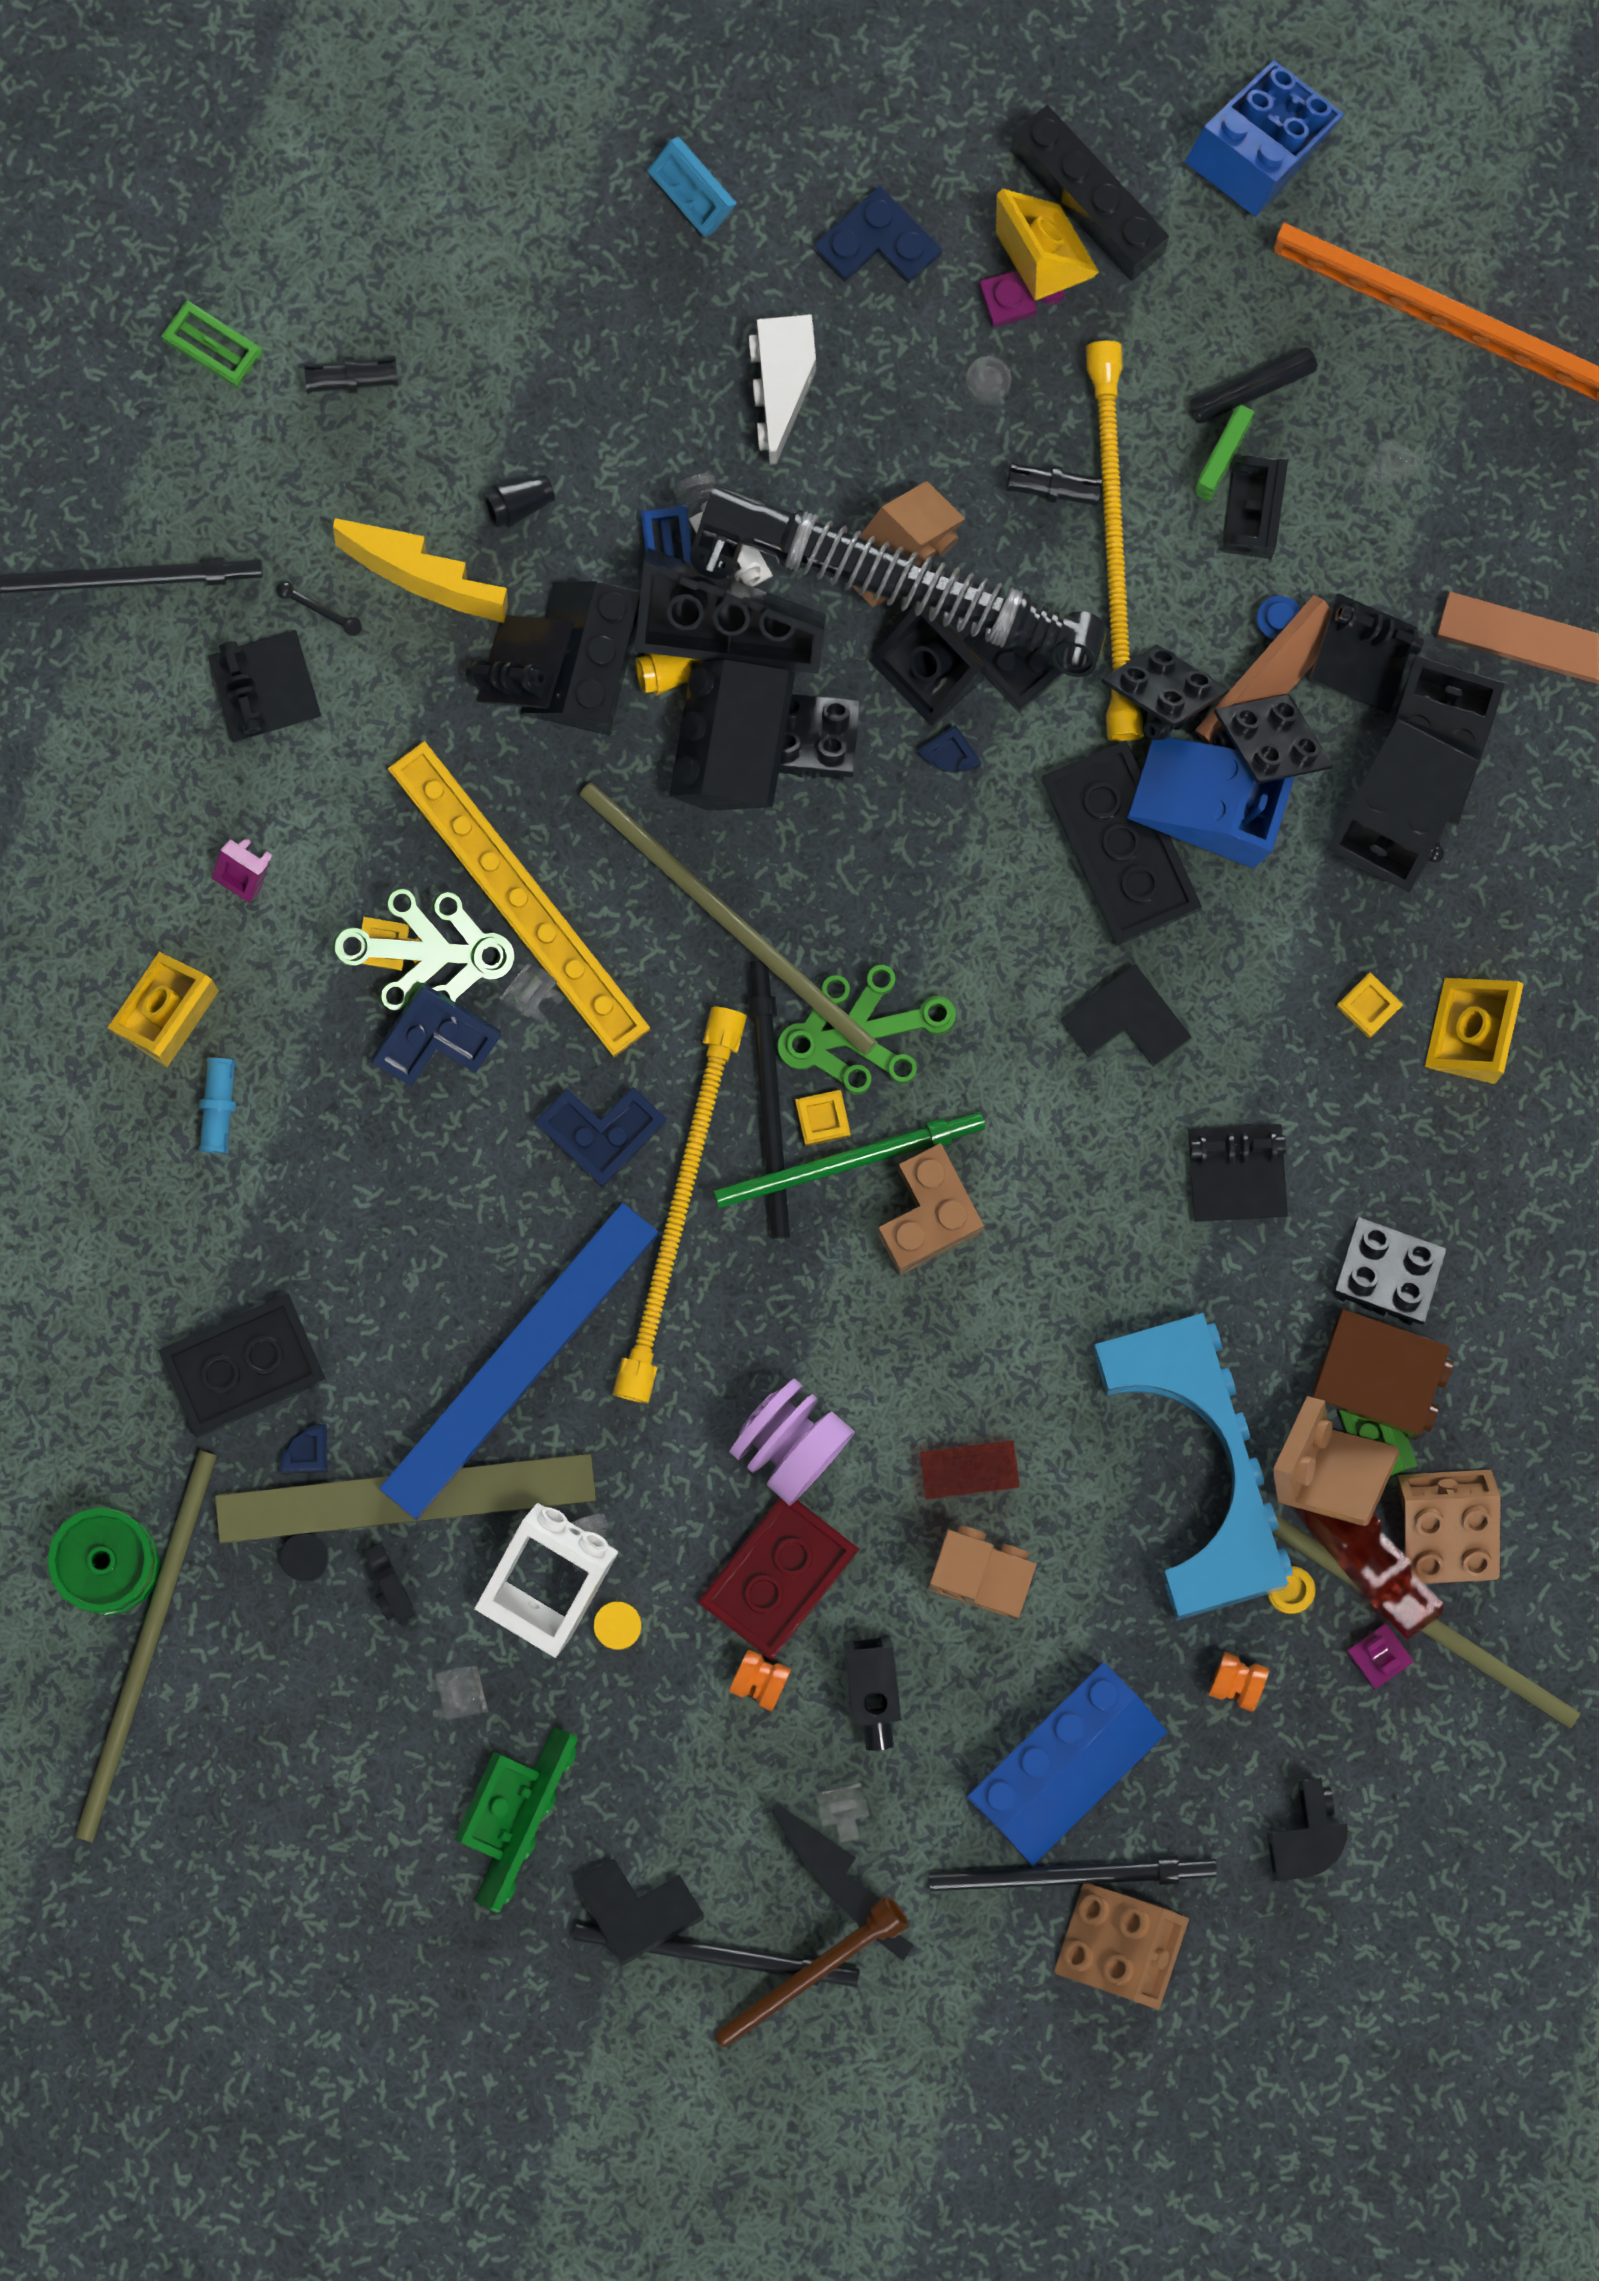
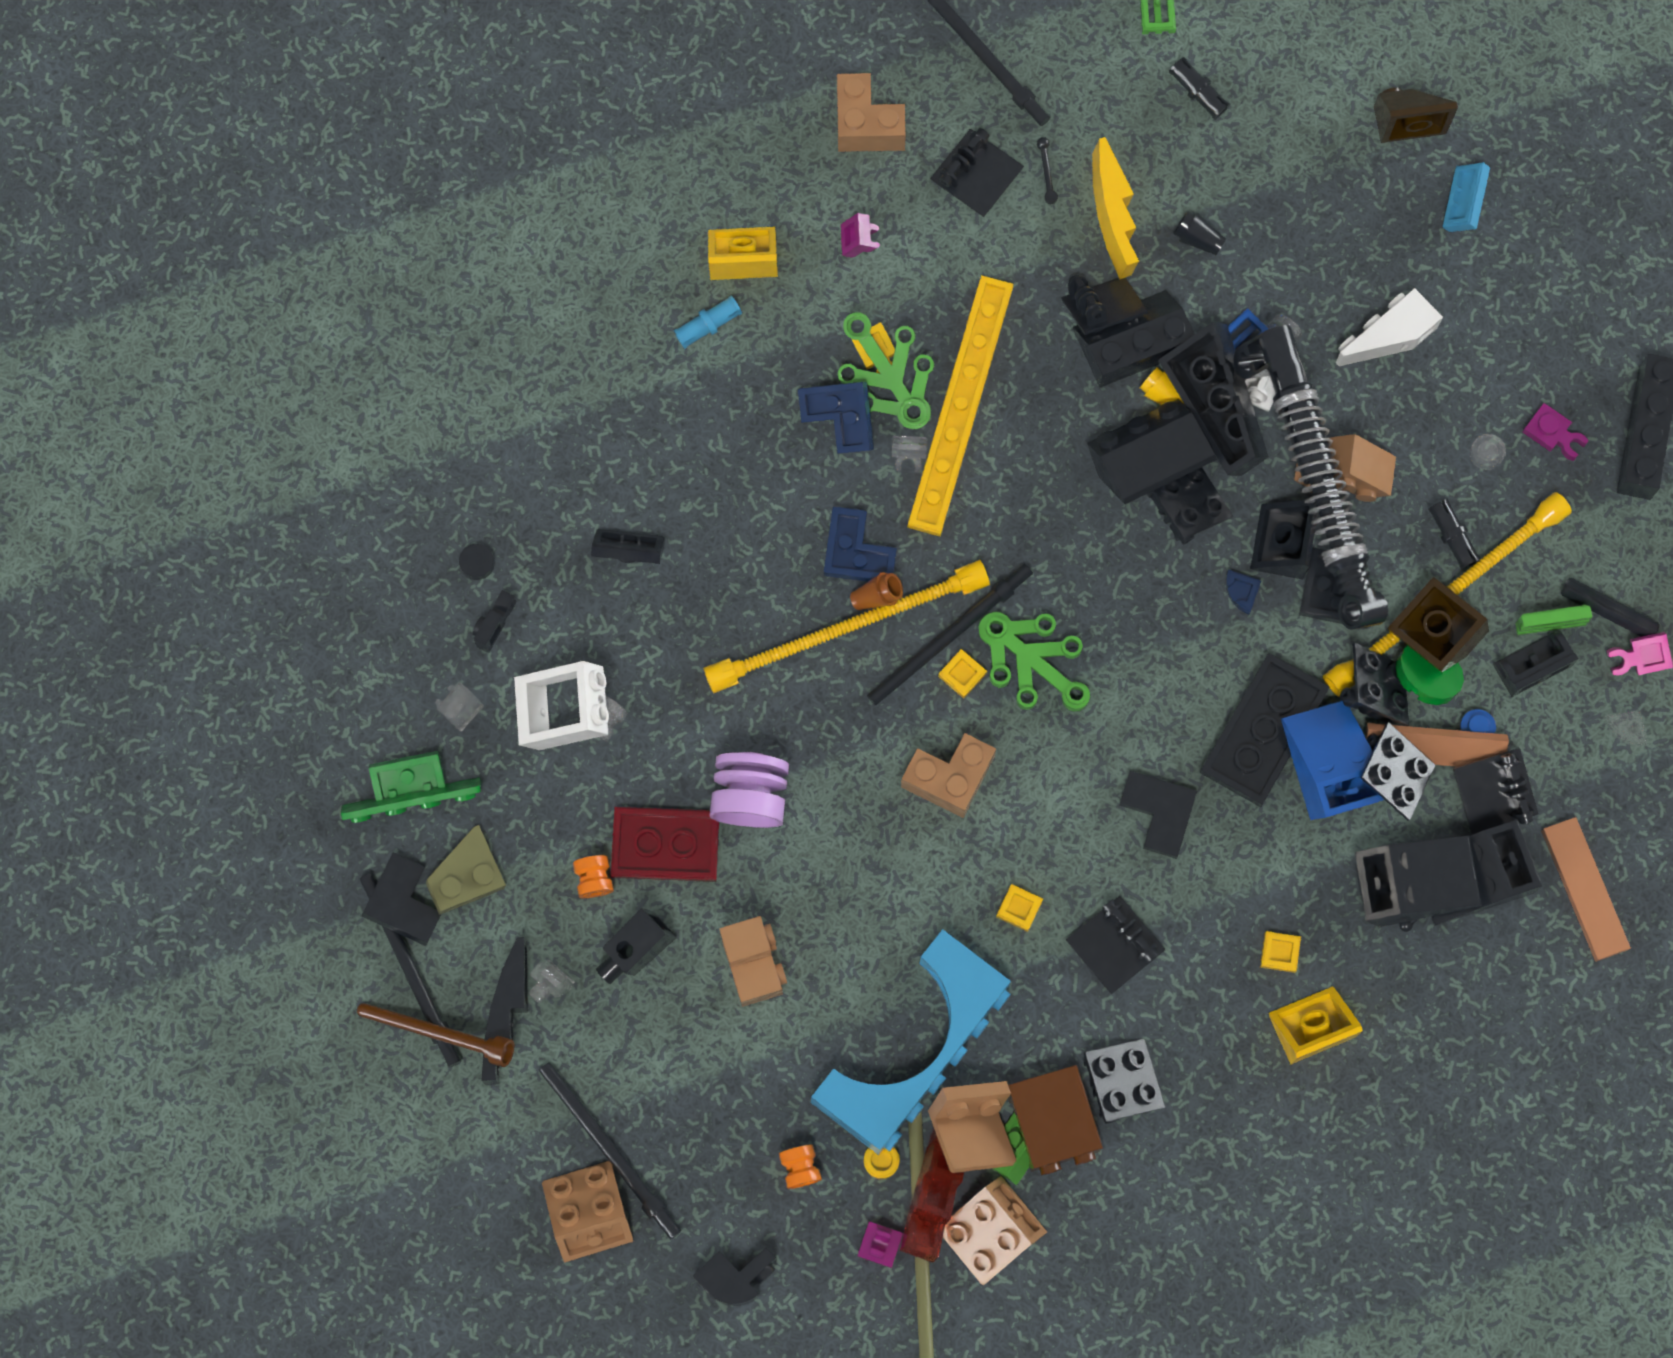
camera: 55 degrees right, 5 degrees down
(115, 770) = (867, 125): none -> medium nougat brick
(132, 1565) = (384, 428): green wheel -> none
(145, 1646) = (359, 509): olive piece -> none
(242, 1365) = (564, 445): black plate -> none
(307, 1452) = (540, 519): dark blue tile -> none
(363, 1505) = (554, 595): olive tile -> none
(413, 1378) = (627, 546): none -> black plate
(519, 1361) = (683, 600): blue tile -> none
(555, 173) = (1412, 114): none -> dark brown slope
(617, 1625) = (566, 771): yellow tile -> none
(655, 1818) = (465, 874): none -> olive wing
(669, 1143) = (878, 592): none -> dark orange cone
(728, 919) = (1040, 533): olive piece -> none
(880, 228) = (1528, 321): dark blue plate -> none
(933, 1134) = (1004, 746): green bar -> none
(969, 1470) = (811, 911): clear red plate -> none
(1041, 243) = (1596, 421): yellow slope -> none
(1067, 1763) = (674, 1097): blue slope -> none
(1124, 1245) = (1019, 908): none -> yellow tile
(1147, 577) = (1440, 626): none -> dark brown slope
(1187, 624) = (1426, 680): none -> green tile
(1331, 386) = (1646, 653): none -> plate

